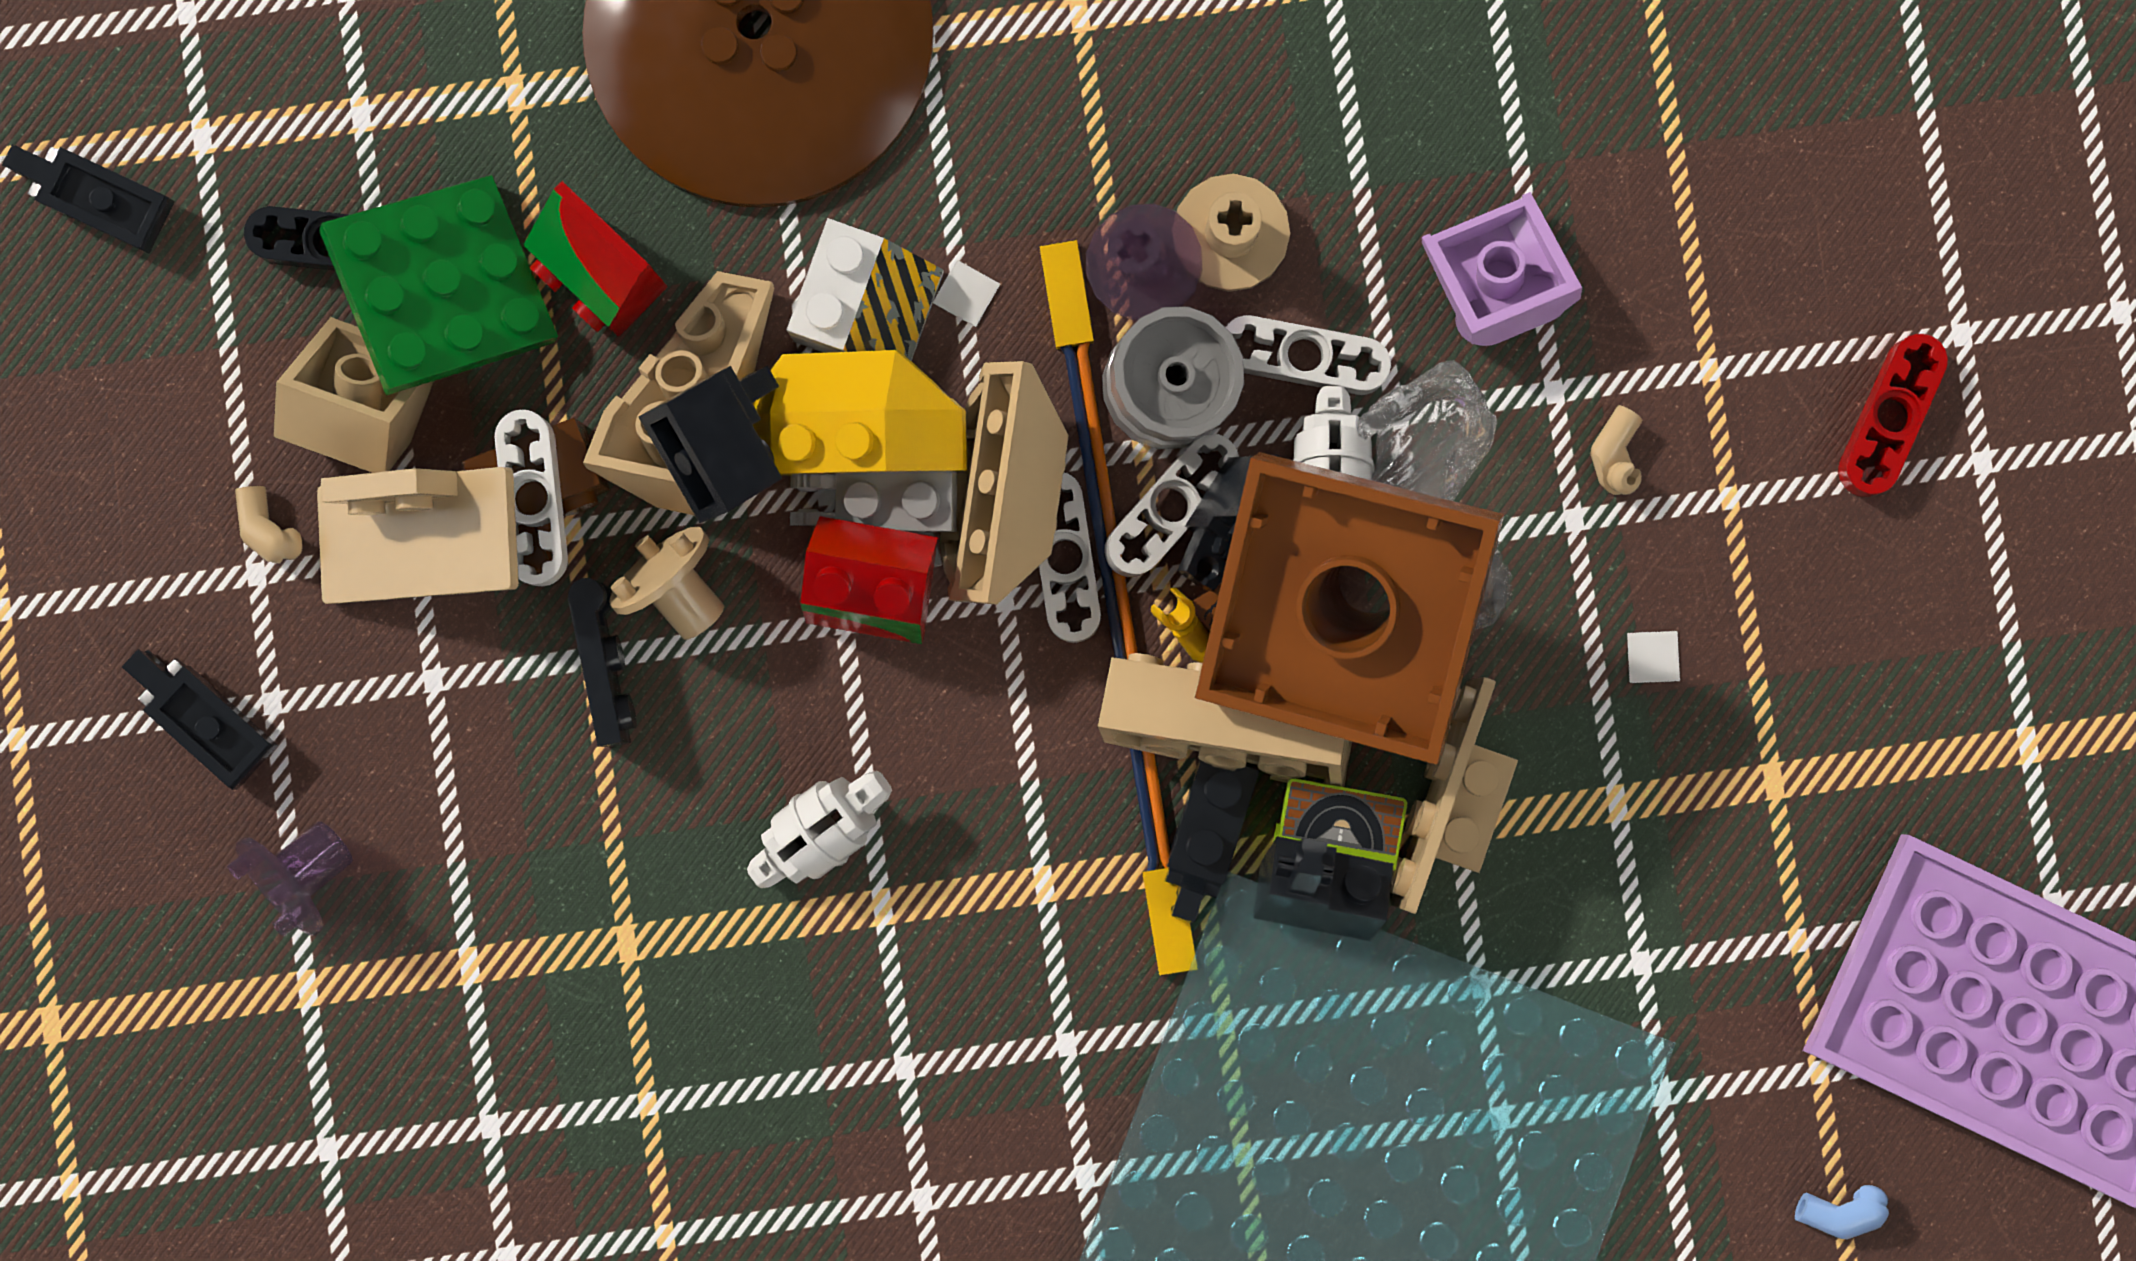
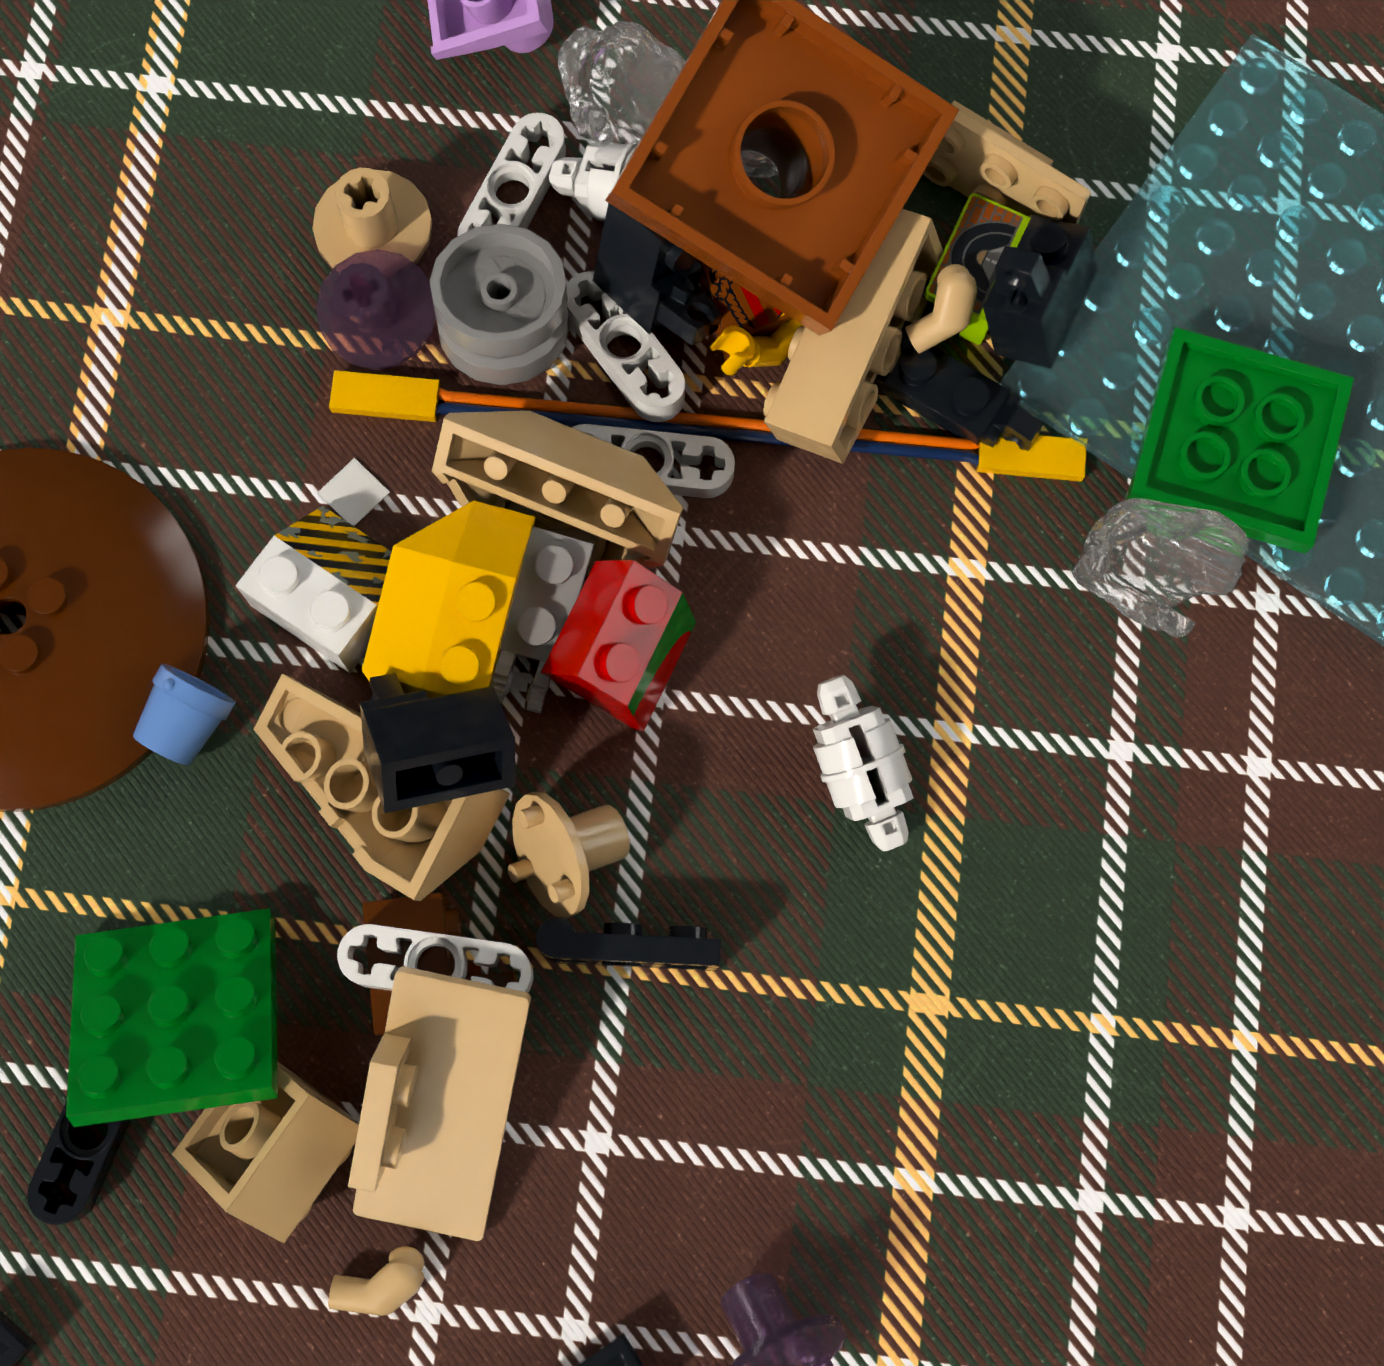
camera: 80 degrees left, 10 degrees down
(592, 262) = (201, 843): red slope -> none
(708, 205) = (180, 715): none -> medium blue piece
(1085, 1055) = (1158, 555): none -> clear hair
(1224, 1114) = (1242, 437): none -> green plate
(1274, 807) = (951, 309): none -> tan arm

